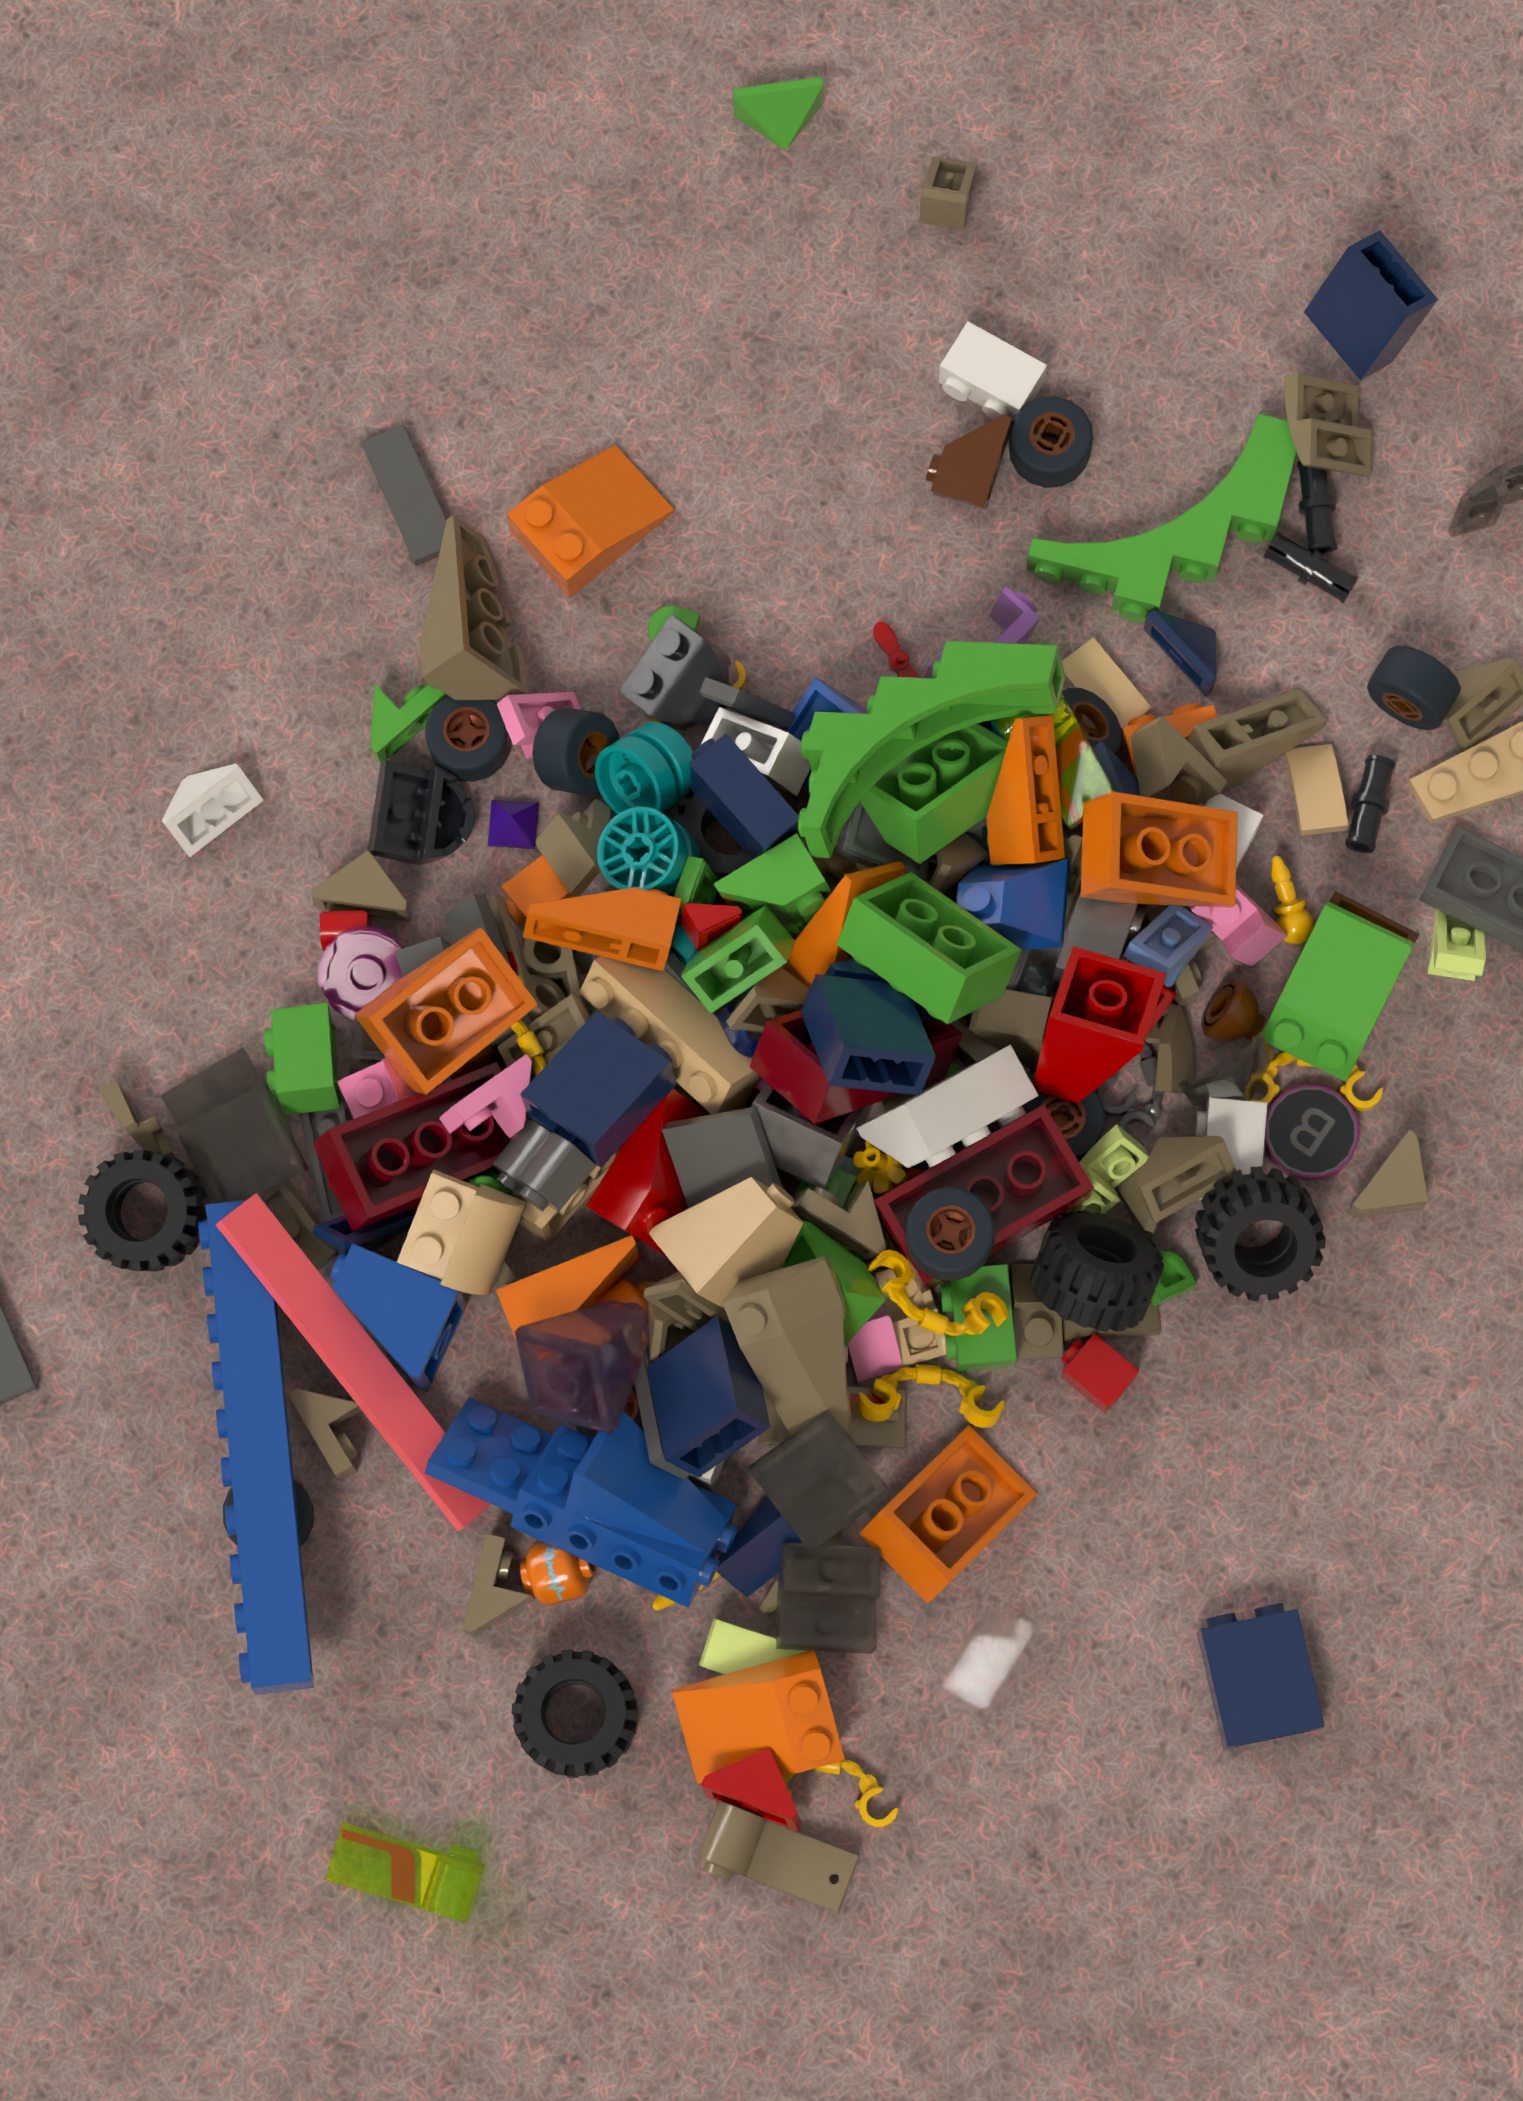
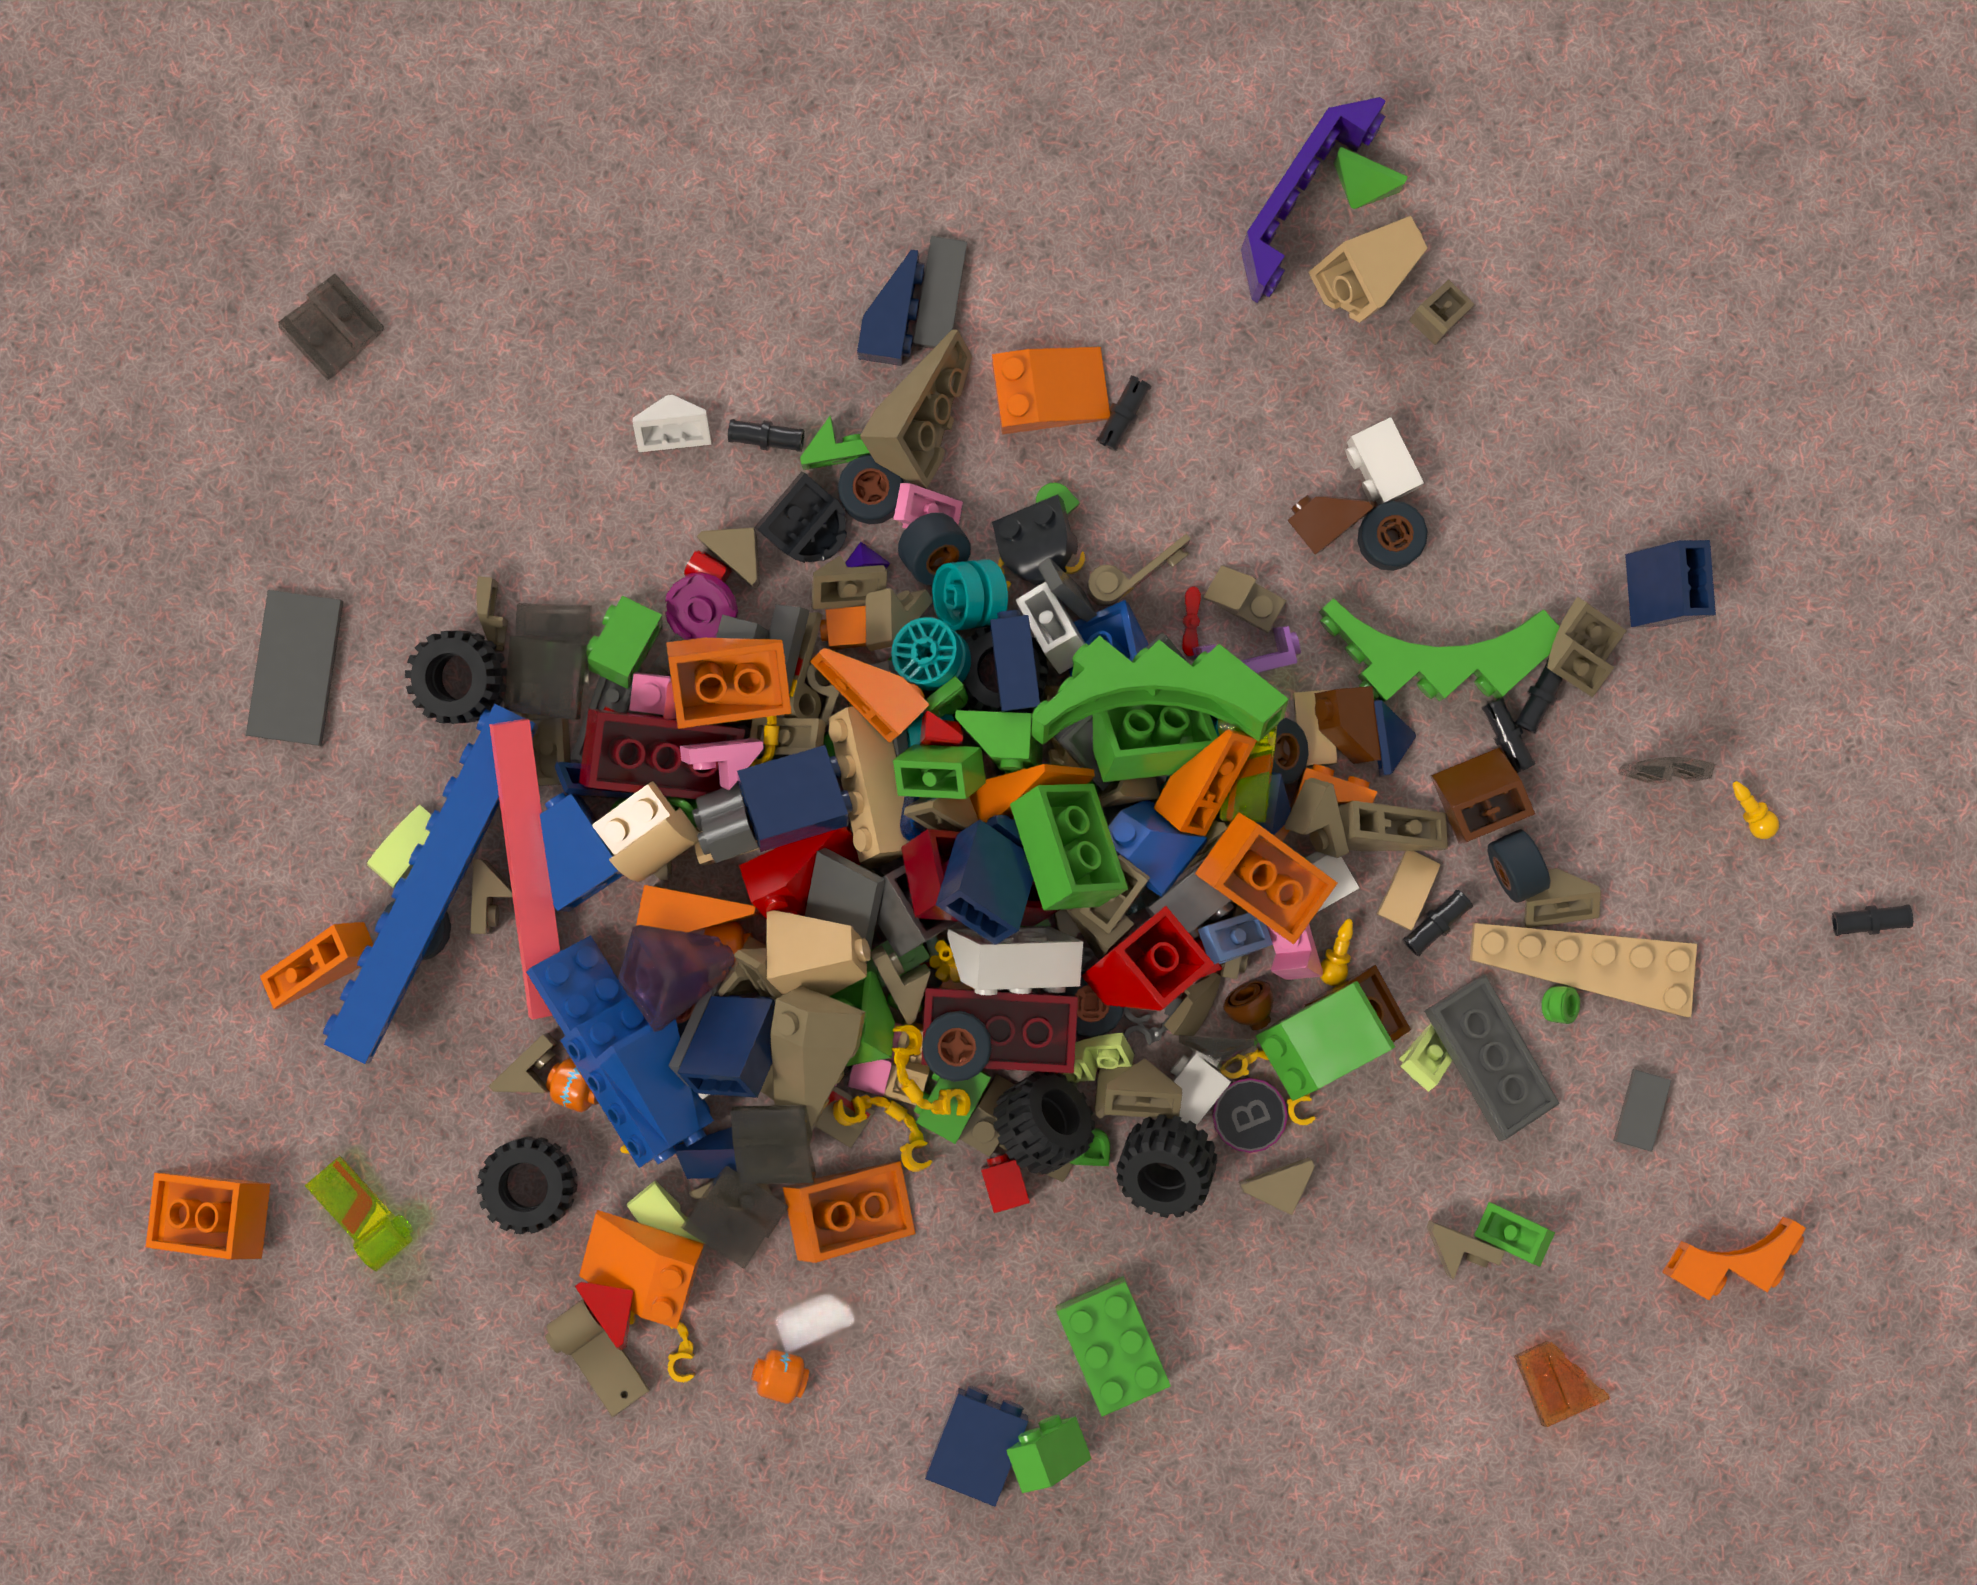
camera: 30 degrees right, 10 degrees up
(183, 1623) = (317, 963): none -> orange slope
(196, 1441) = (393, 855): none -> yellowish green slope
(235, 1986) = (208, 1216): none -> orange slope
(317, 752) = (766, 435): none -> black pin
(370, 552) = (887, 319): none -> dark blue slope
(507, 849) = (845, 586): none -> dark tan slope
(684, 494) = (1123, 413): none -> black pin
(720, 66) = (1346, 123): none -> dark purple slope
(788, 671) = (1109, 584): none -> dark tan door
(841, 192) = (1368, 268): none -> tan slope
(939, 603) = (1244, 598): none -> dark tan slope
(993, 1744) = (780, 1376): none -> orange head
(1019, 996) = (1111, 912): none -> dark tan slope
(1136, 654) = (1349, 722): none -> reddish brown slope
(1327, 643) = (1482, 795): none -> reddish brown slope
(1333, 1470) = (1112, 1346): none -> bright green brick
(1342, 1627) = (1048, 1453): none -> bright green brick

